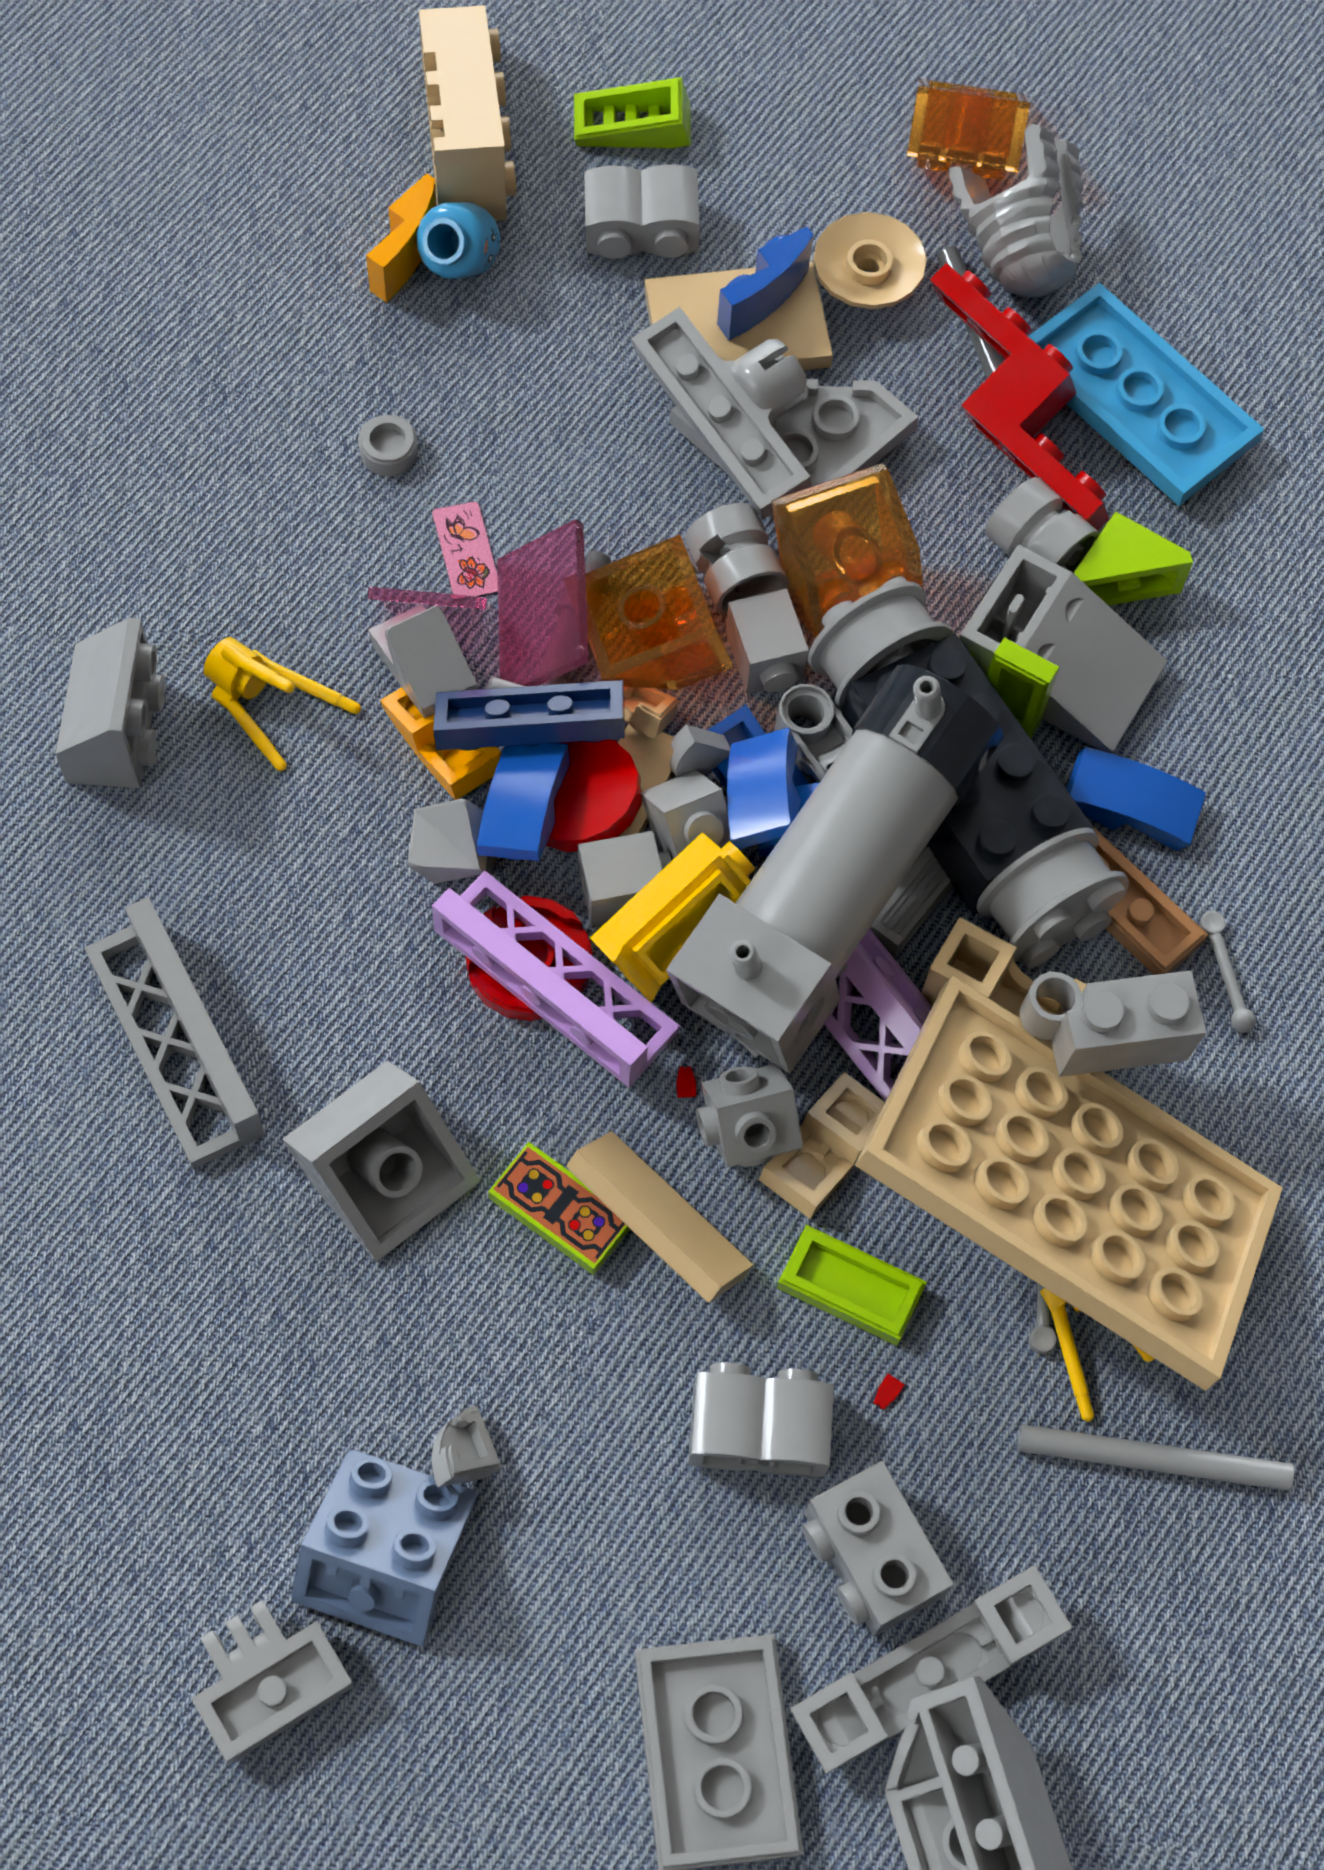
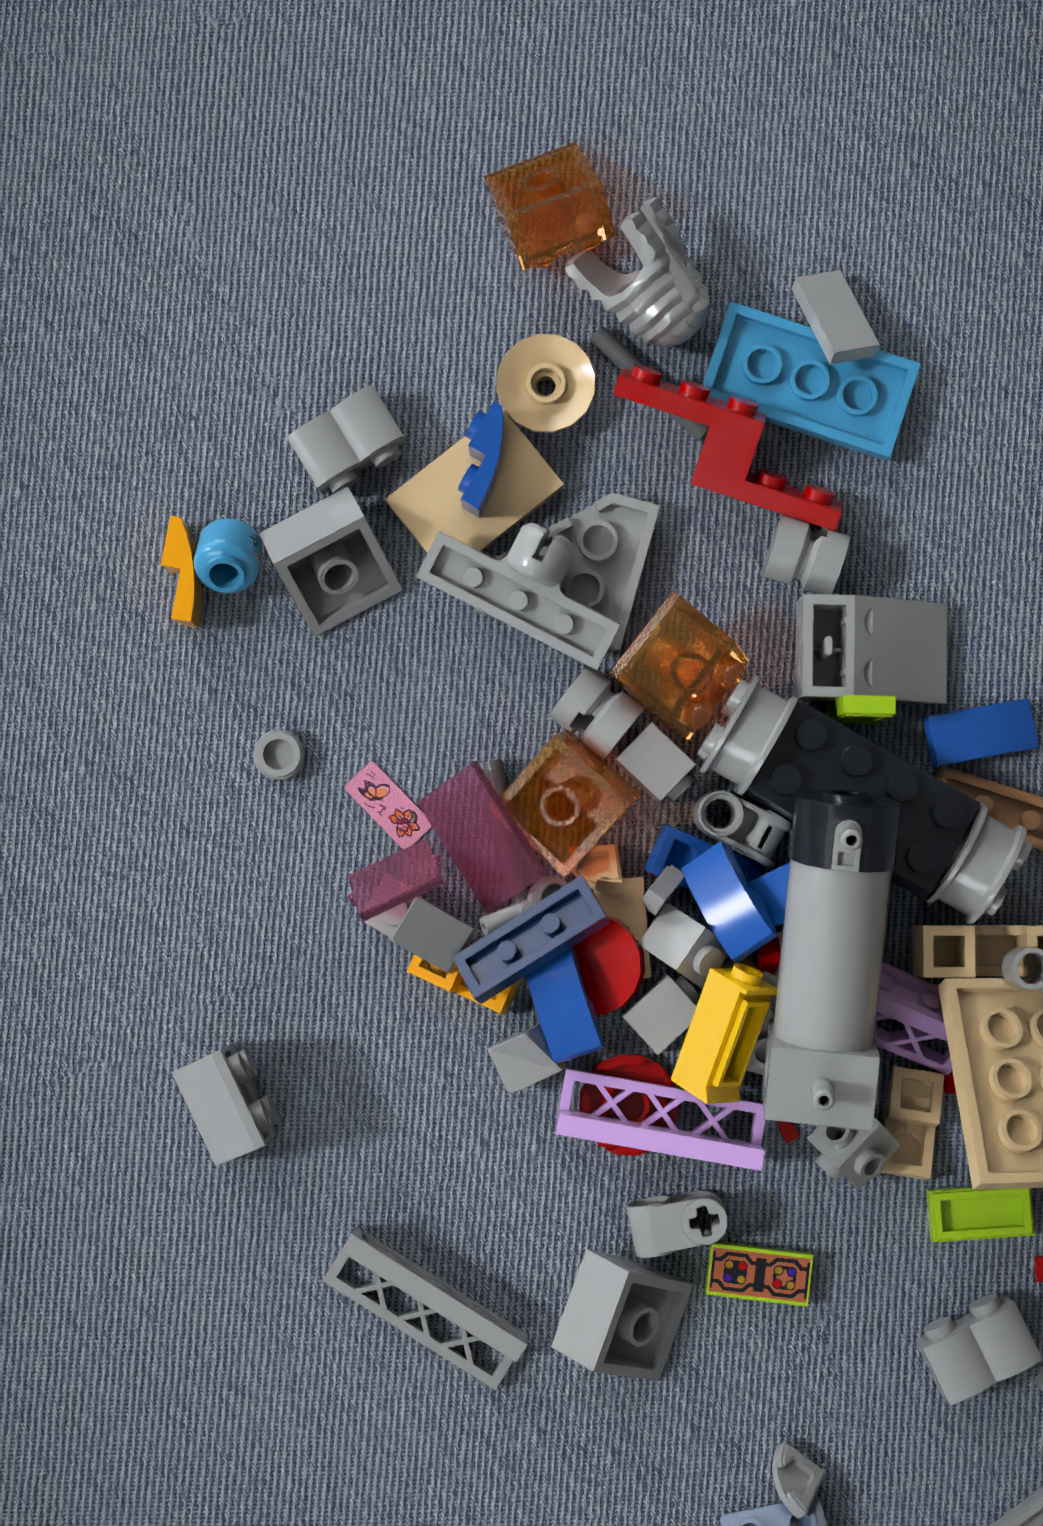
camera: 20 degrees left, 20 degrees up
(244, 673) = (294, 1011): yellow plant -> none
(464, 108) = (156, 431): wedge -> none
(494, 1092) = (667, 1223): none -> light grey piece
(555, 303) = (330, 561): none -> light grey slope
(635, 132) = (310, 355): lime slope -> none
(659, 1216) = (830, 1245): tan tile -> none
(1133, 563) = (875, 543): lime slope -> none
(1198, 345) = (835, 317): none -> light grey tile

